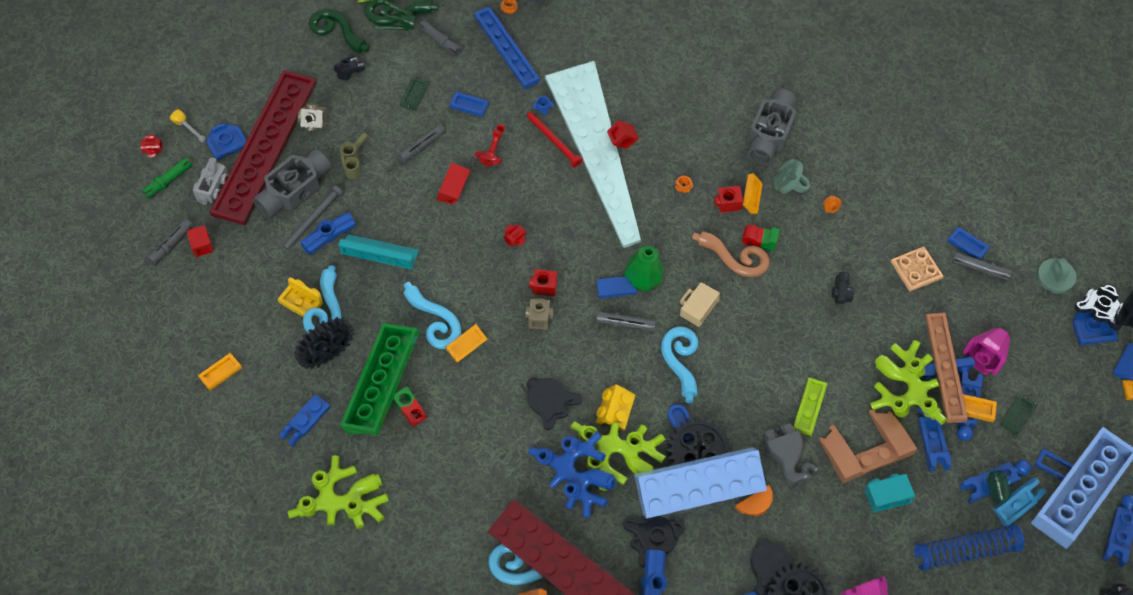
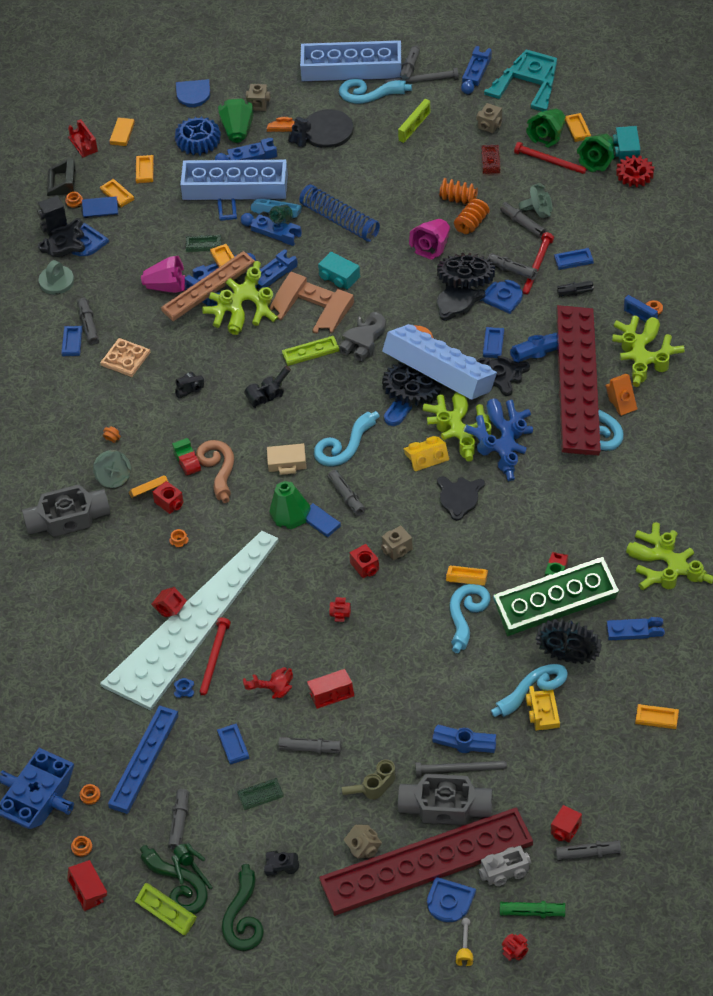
camera: 125 degrees left, 10 degrees down
(378, 251) = (444, 693): teal panel -> none
(695, 558) = (493, 342): none -> blue tile
(788, 337) = (269, 389): none -> black beam

